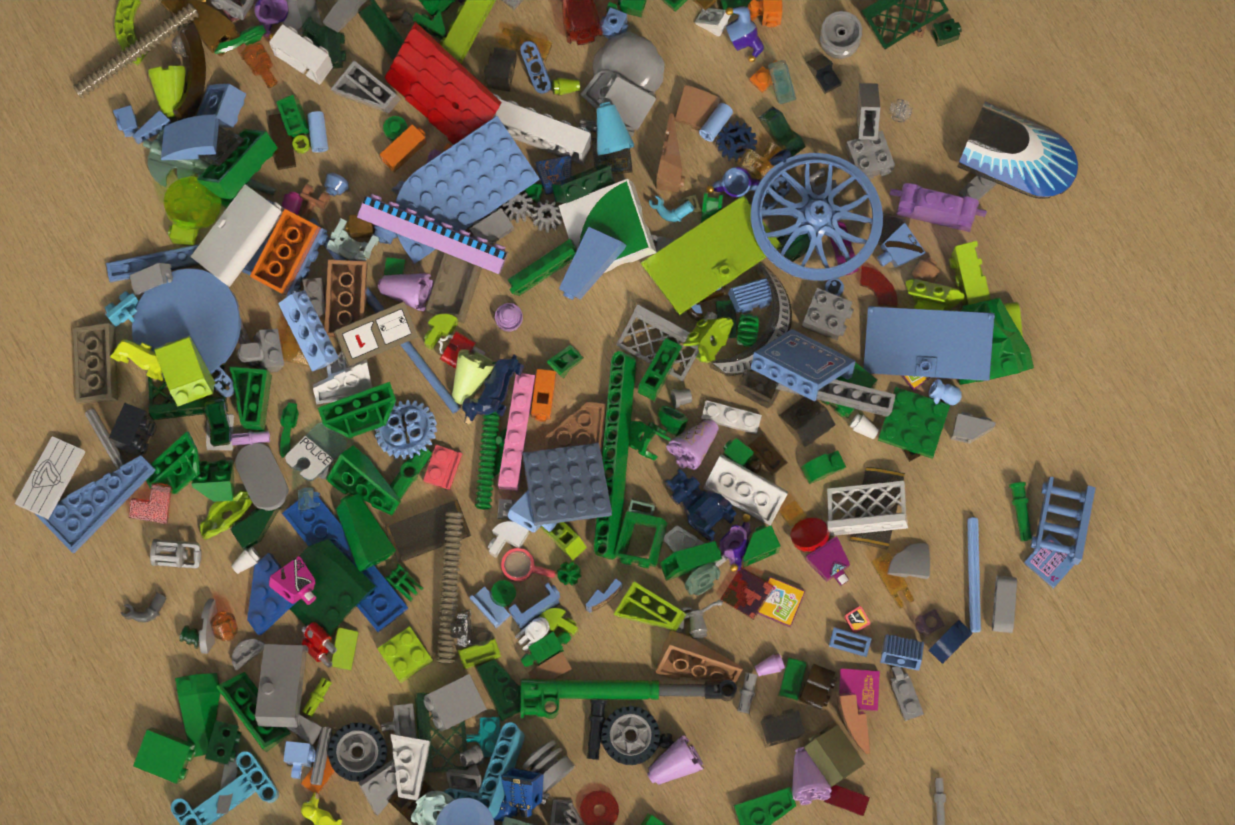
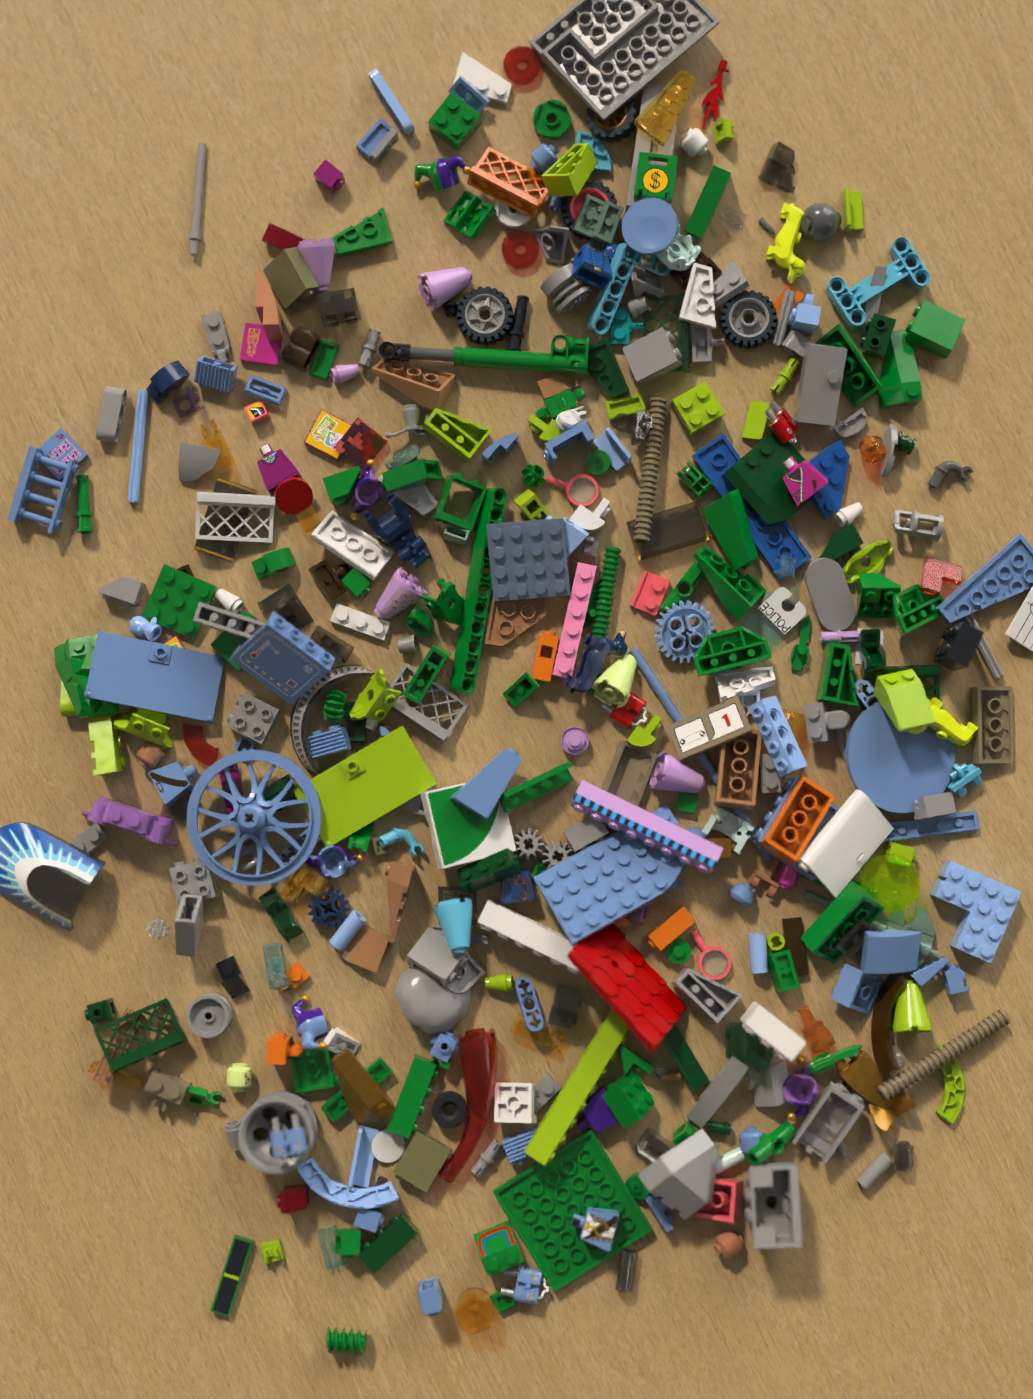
camera: 175 degrees left, 10 degrees up
(98, 188) = (986, 907): none -> light blue piece
(360, 122) = (713, 960): none -> piece
(780, 156) = (284, 885): dark blue tile -> none

